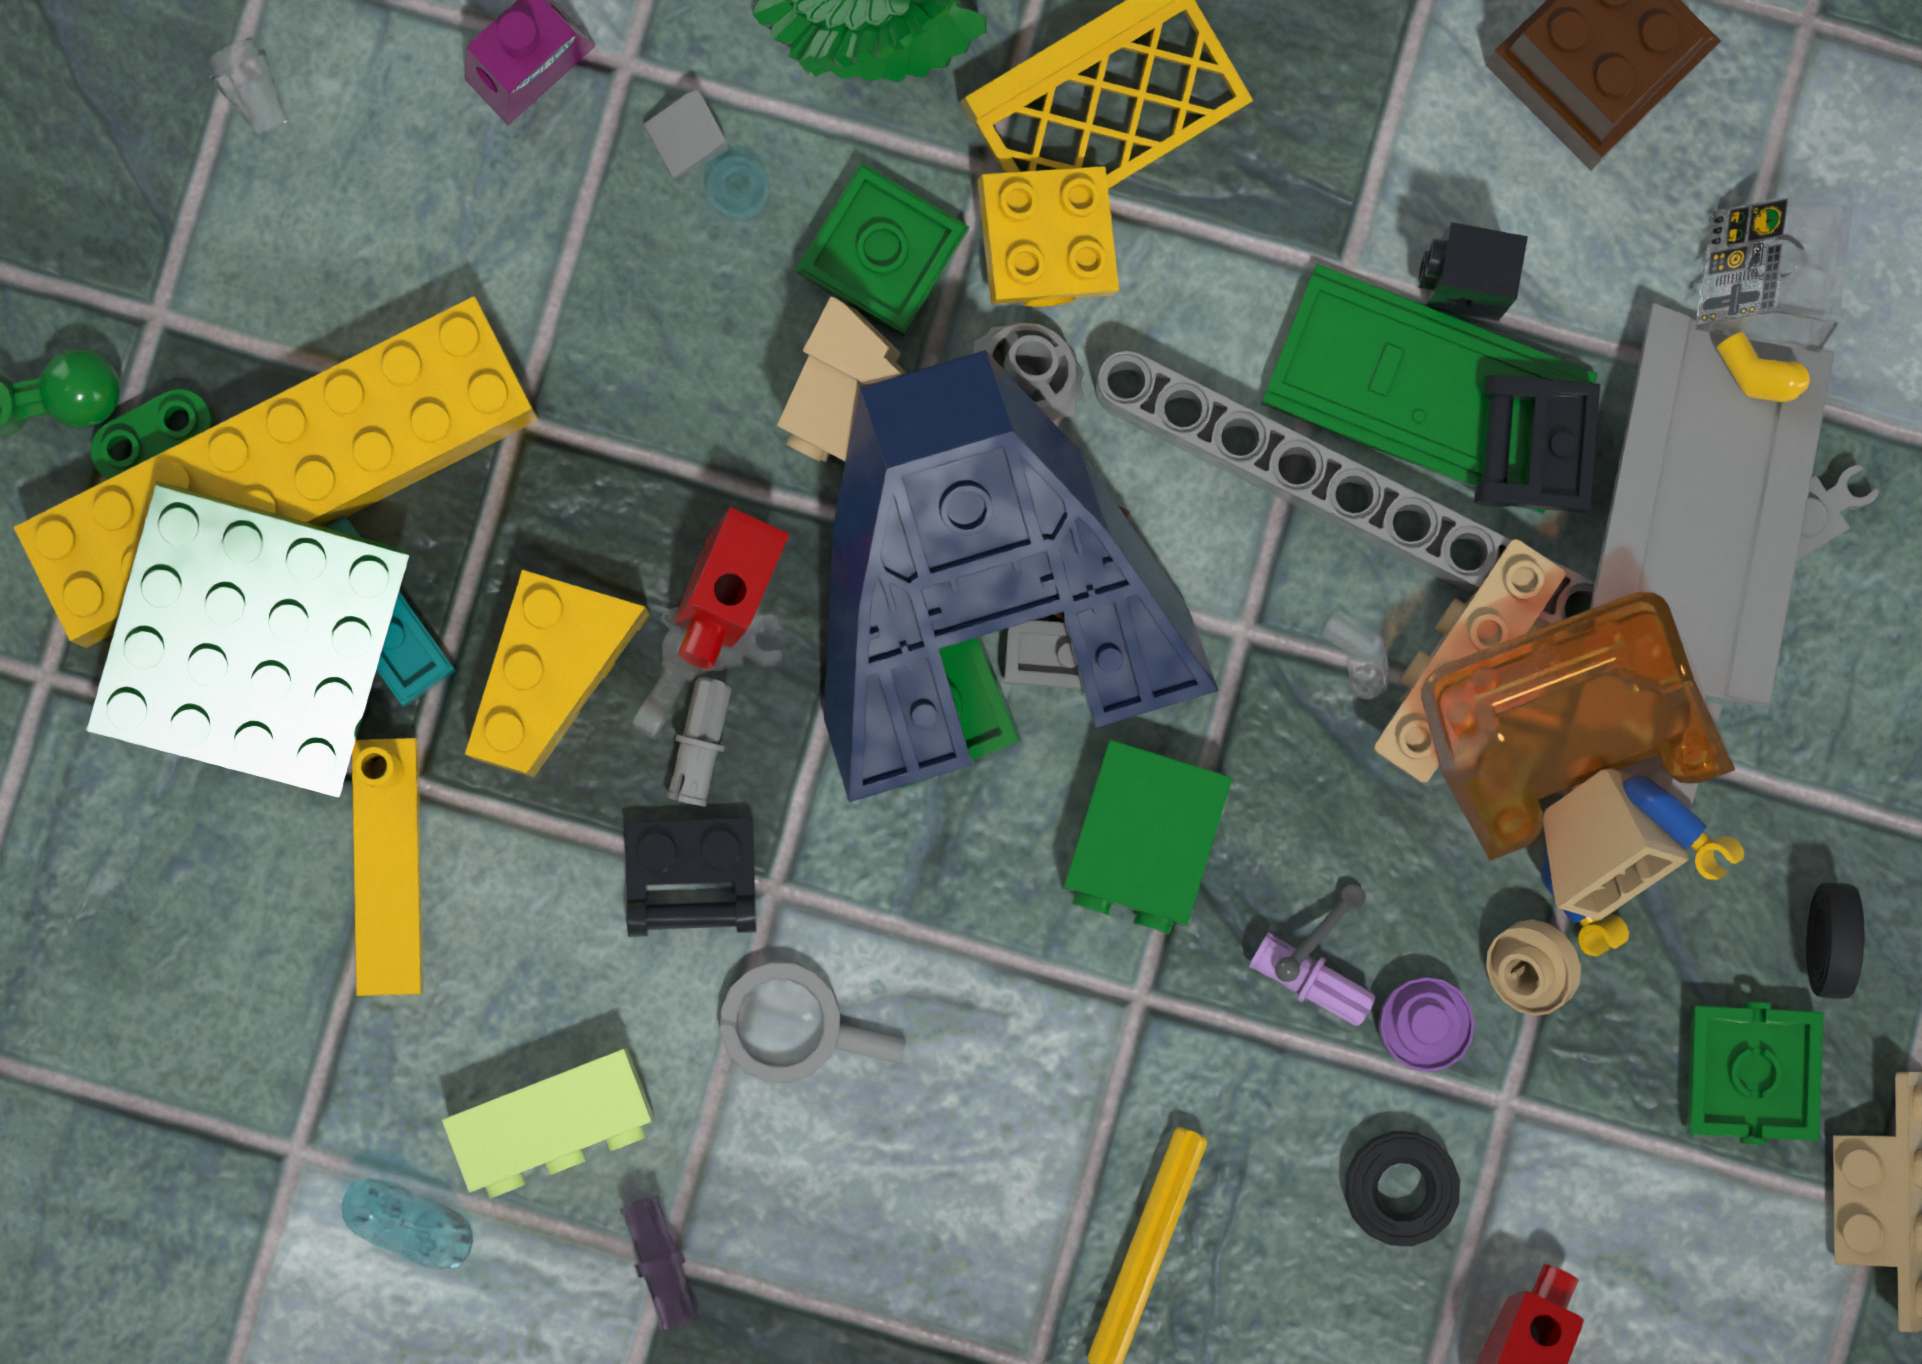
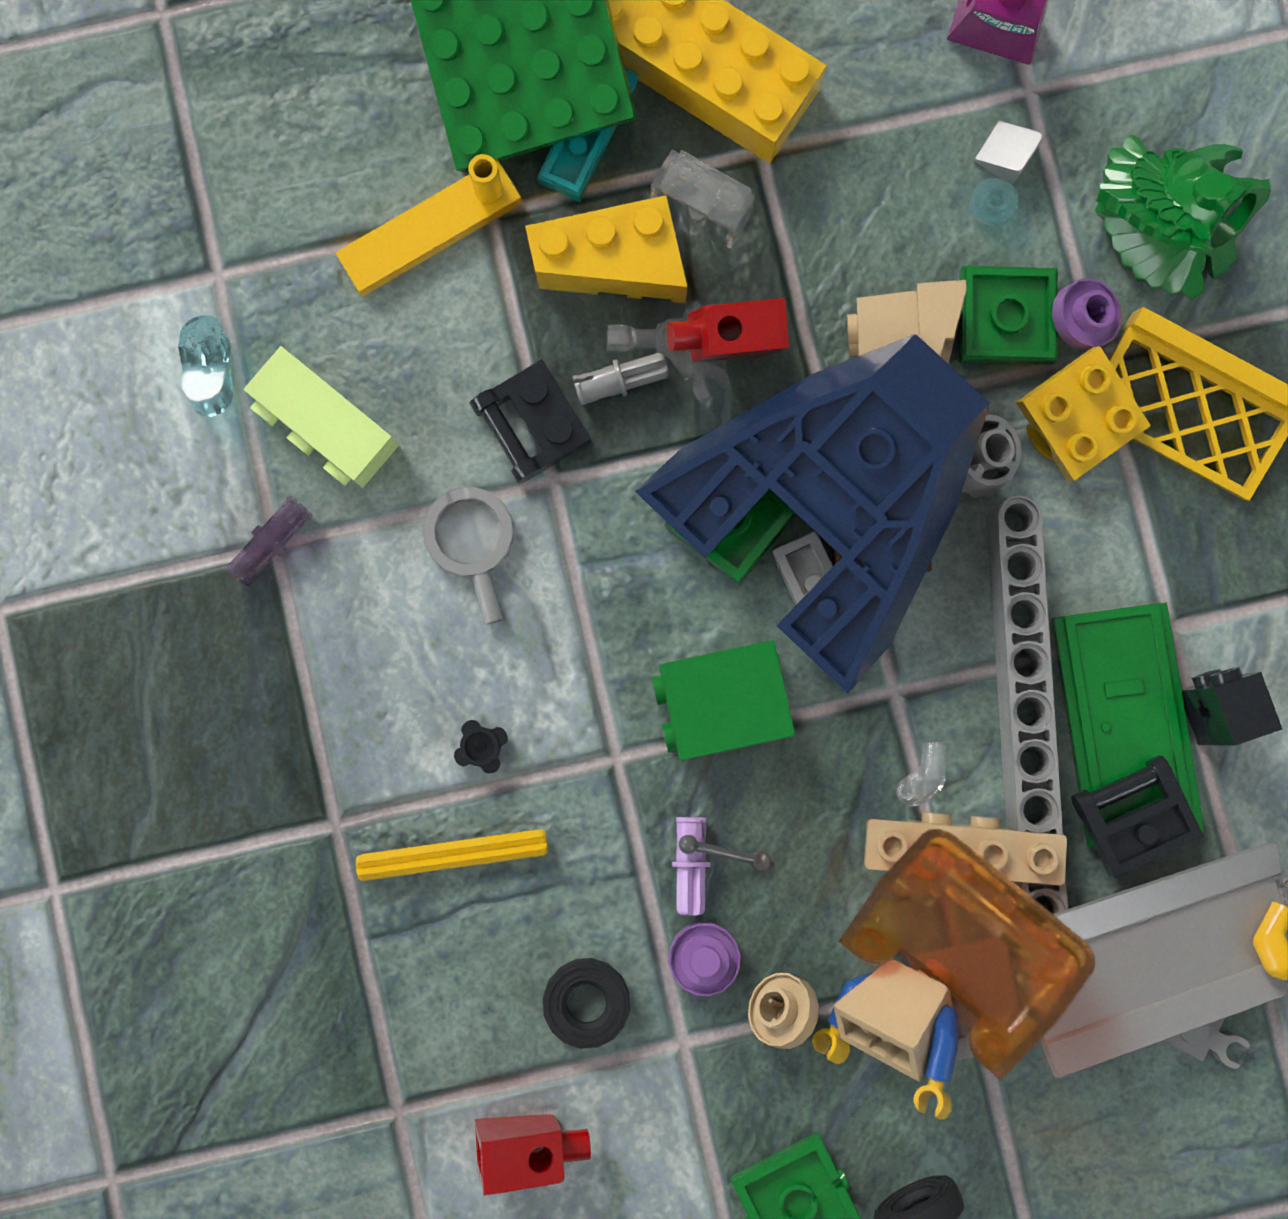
camera: 65 degrees right, 0 degrees up
(539, 522) = (705, 192): none -> clear window
(934, 161) = (1086, 314): none -> medium lavender plate
(1059, 1147) = (472, 735): none -> black plate

